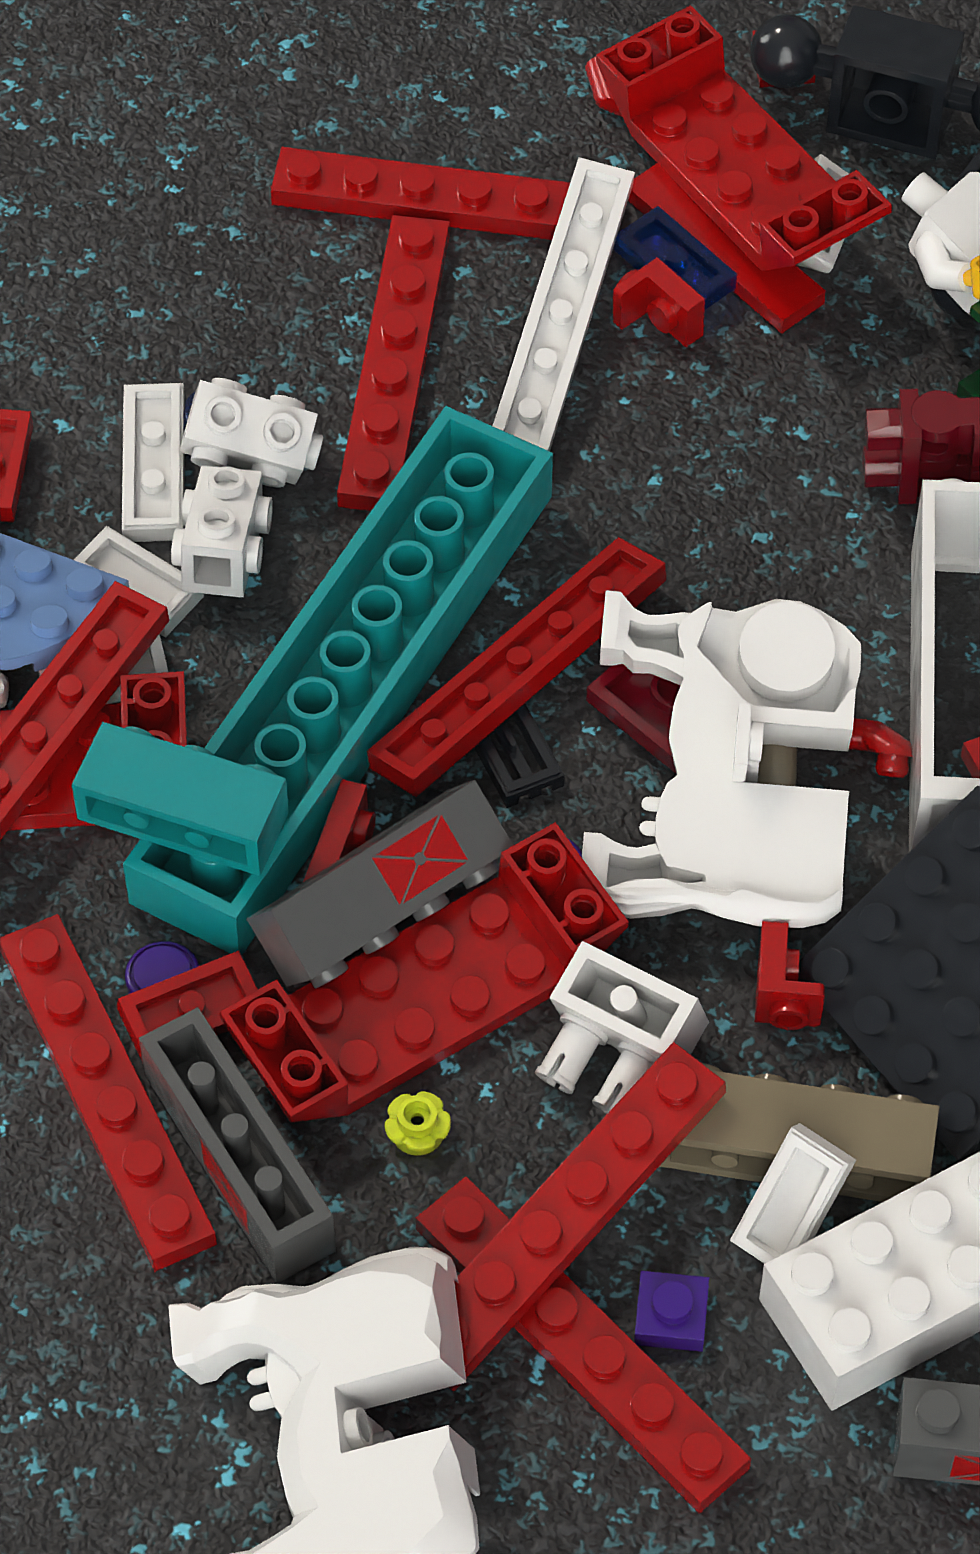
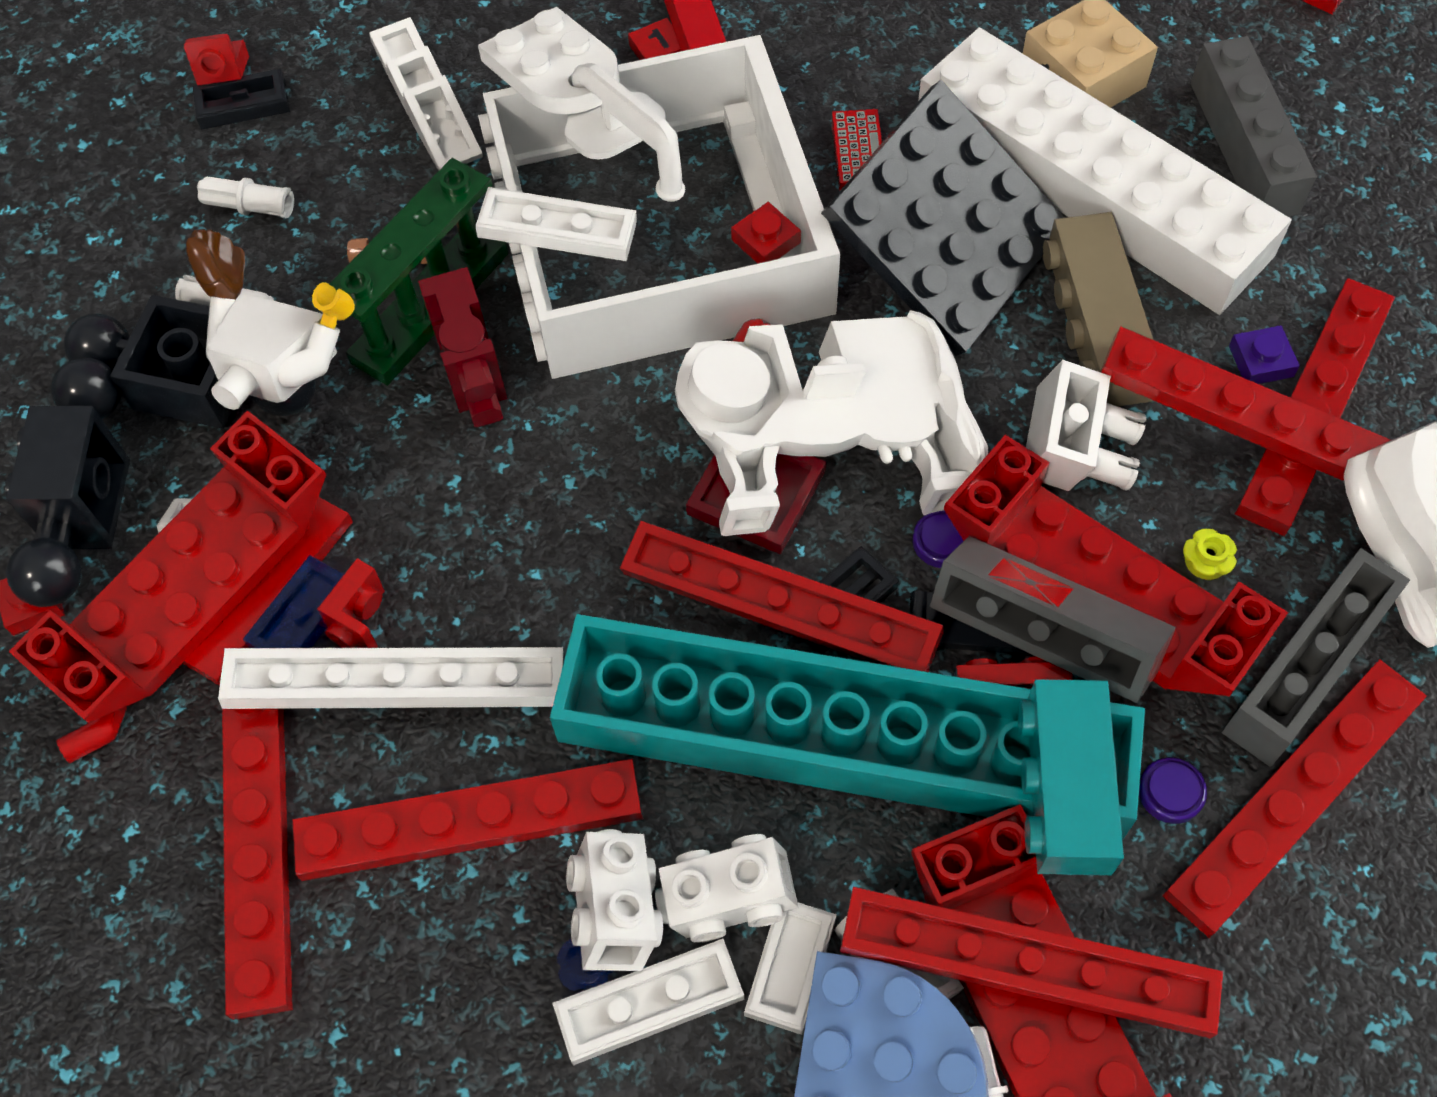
camera: 105 degrees left, 5 degrees up
(206, 987) = (1204, 745): red plate -> none
(778, 993) = (988, 353): red bracket -> none
(793, 1195) = (1164, 287): white tile -> none

